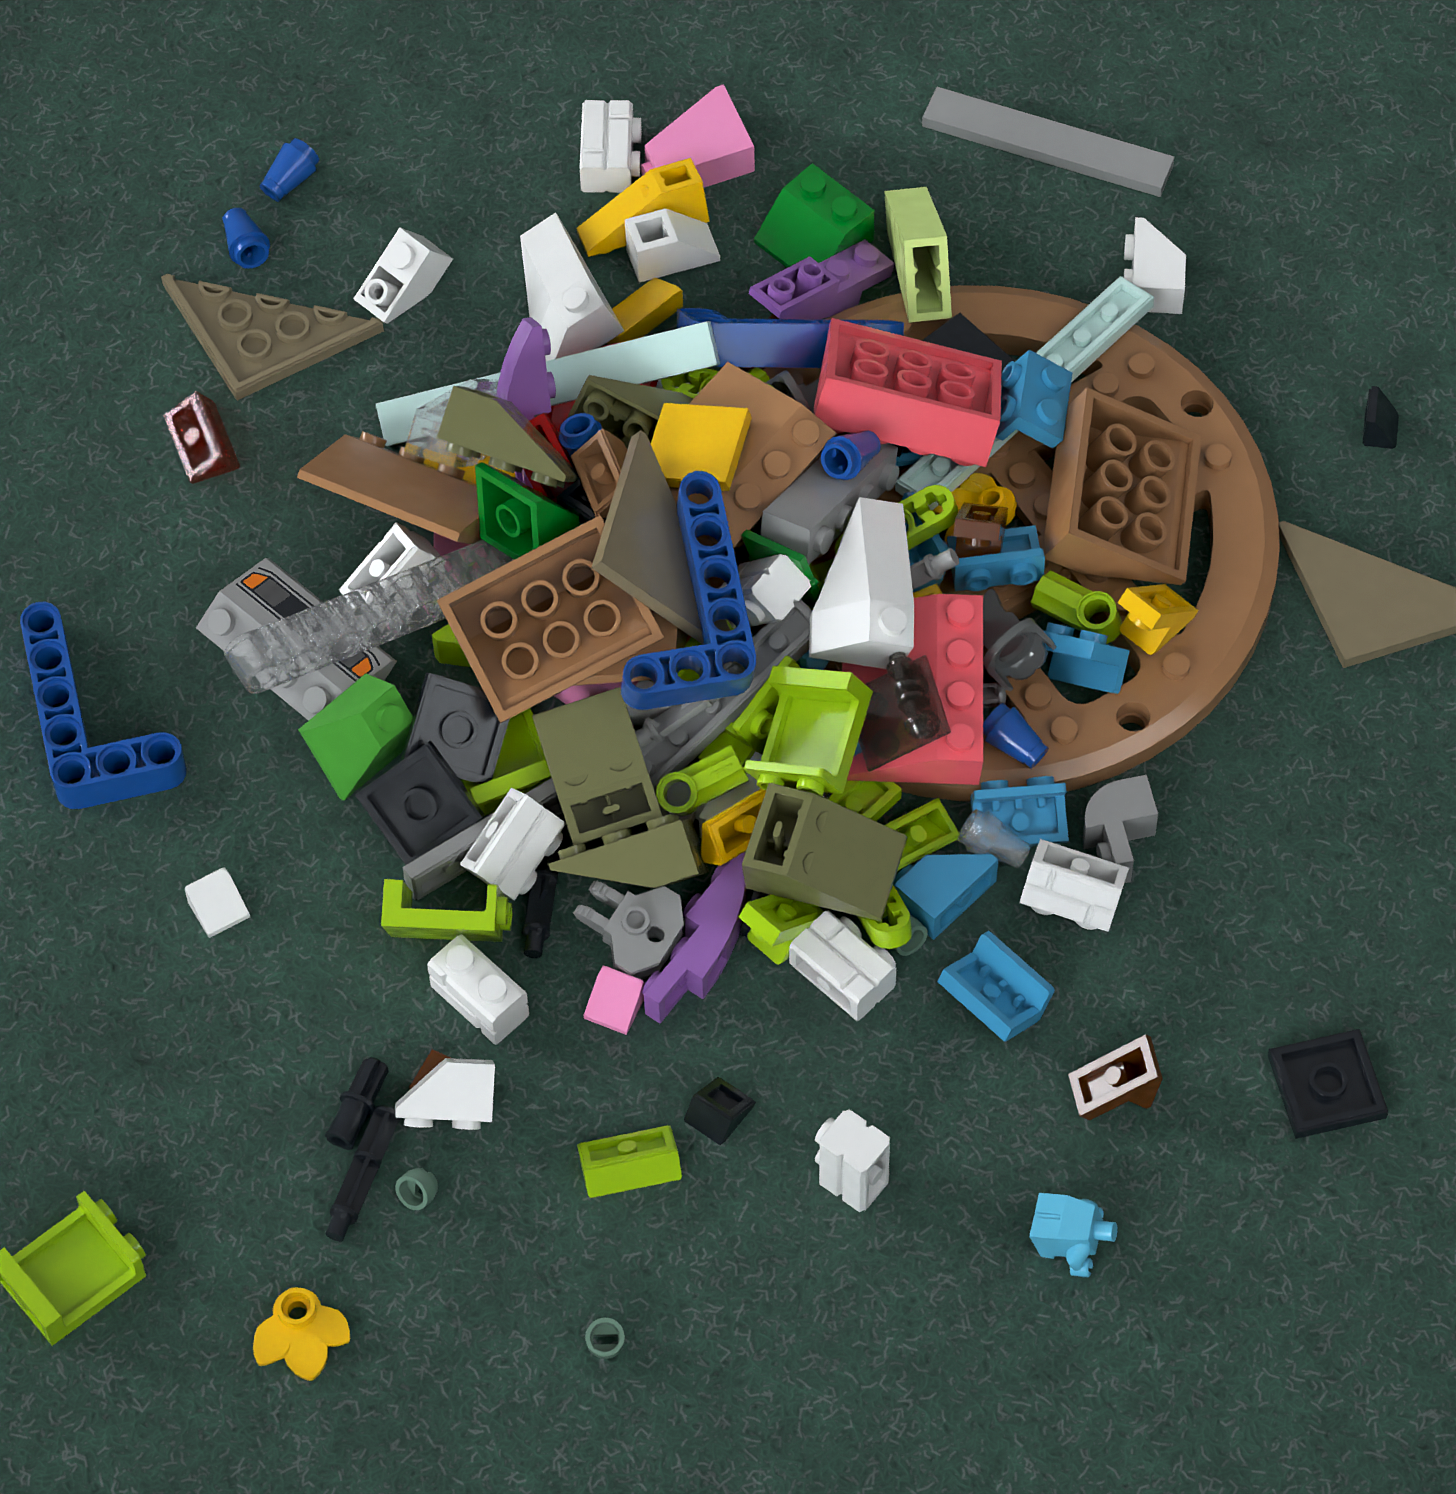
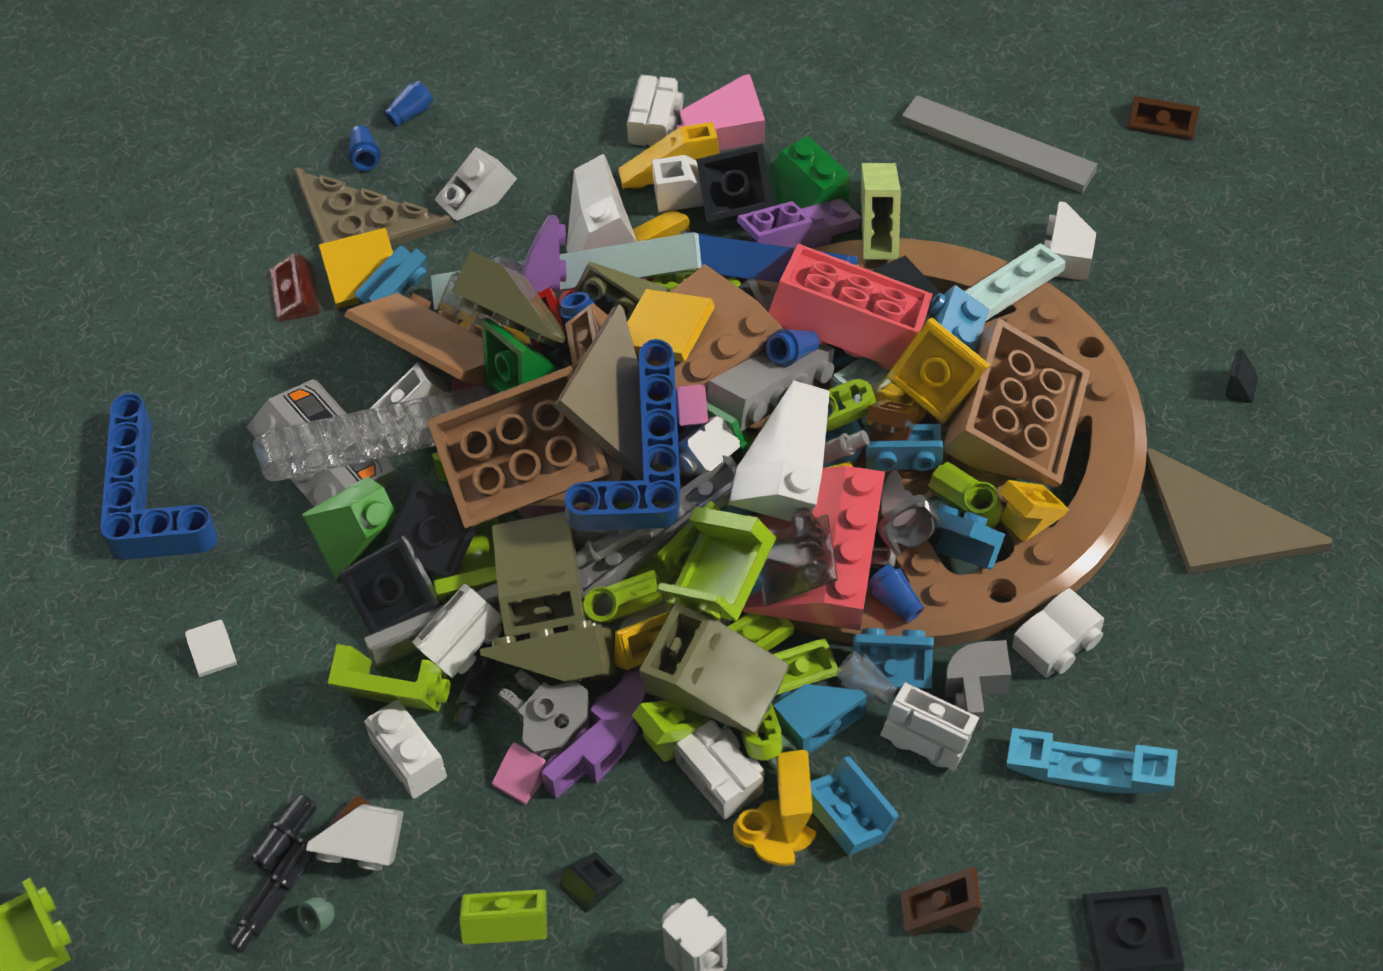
camera: 10 degrees right, 5 degrees down
(282, 402) = (353, 261): none -> yellow tile
(329, 413) = (394, 275): none -> dark azure bracket
(736, 241) = (736, 184): none -> black slope
(750, 545) = (691, 406): none -> bright pink slope
(915, 1027) = (765, 834): none -> yellow plate
(935, 978) = (794, 792): none -> yellow slope
(1025, 462) = (937, 370): none -> yellow tile
(1204, 758) = (1059, 633): none -> white brick
(1247, 83) = (1163, 117): none -> reddish brown slope
(1260, 907) = (1090, 767): none -> medium azure slope

